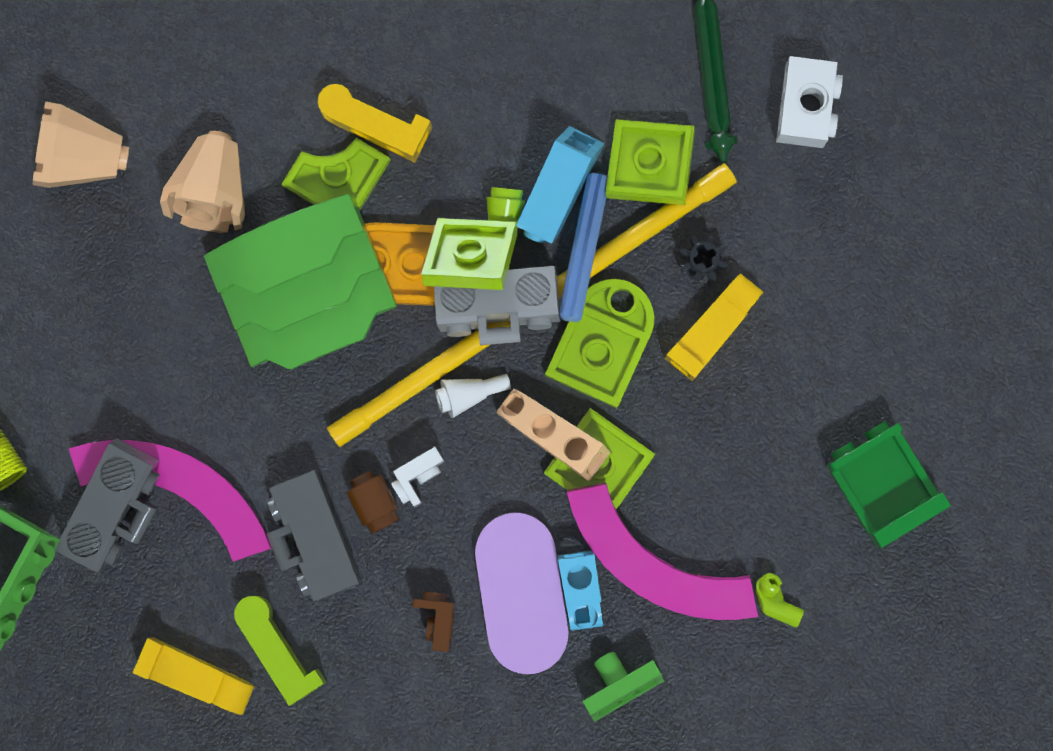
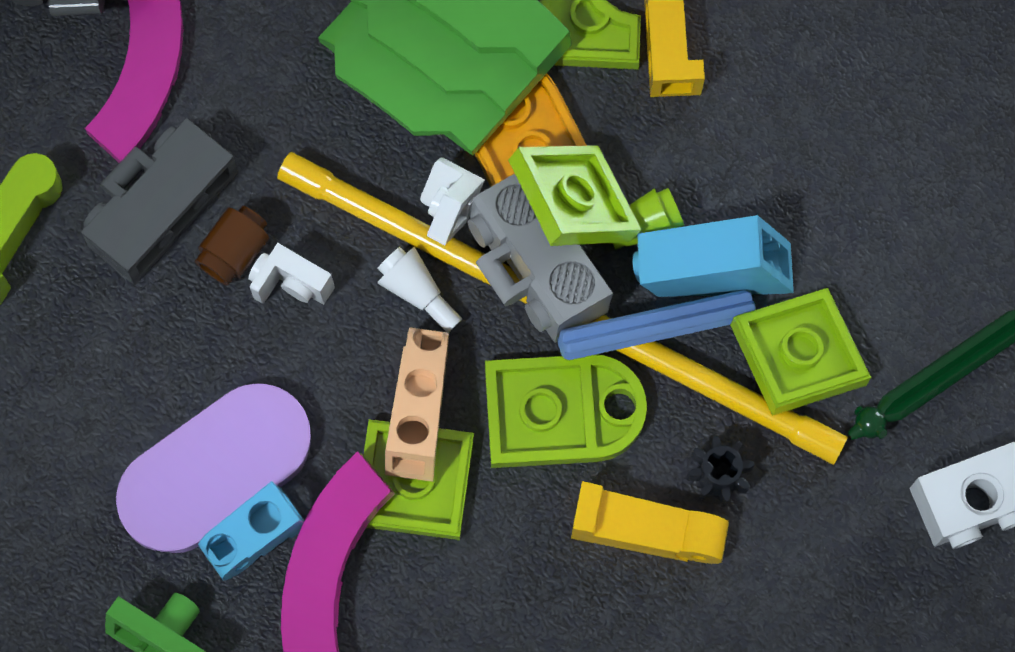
camera: 55 degrees right, 10 degrees down
(417, 334) = (449, 198): none -> white bracket
(440, 627) = (131, 394): reddish brown bracket -> none

